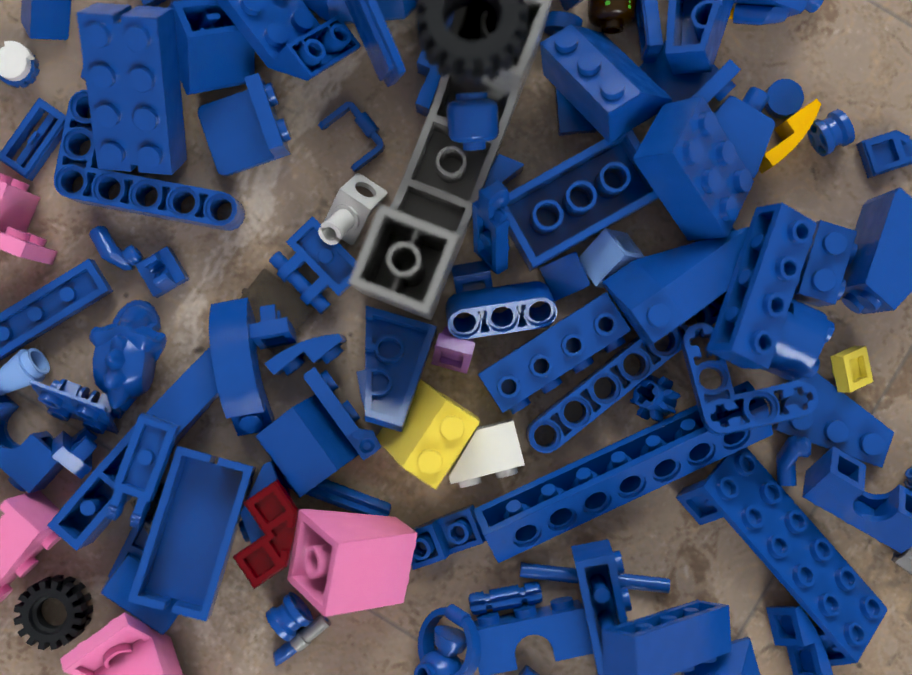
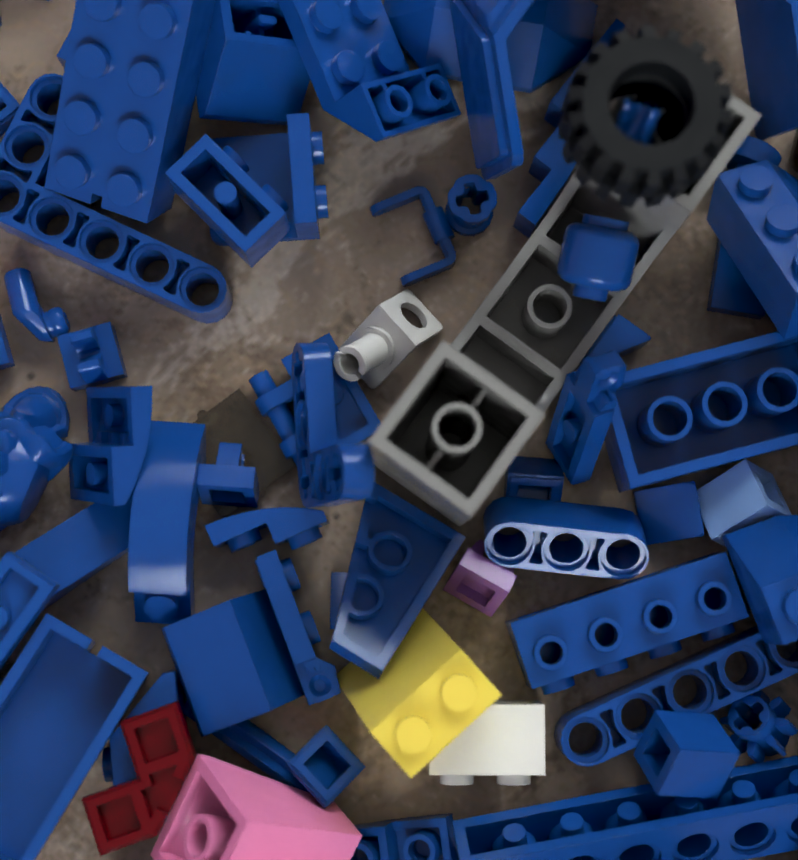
camera: 10 degrees right, 5 degrees down
(191, 313) = (118, 440): none -> blue slope
(221, 145) = (229, 200): none -> blue brick
(333, 306) = (326, 470): none -> blue beam
(383, 496) = (325, 766): none -> blue slope
(391, 98) = (481, 194): none -> blue bush
(468, 25) = (638, 120): none -> blue hand
(610, 428) = (686, 754): none -> blue brick

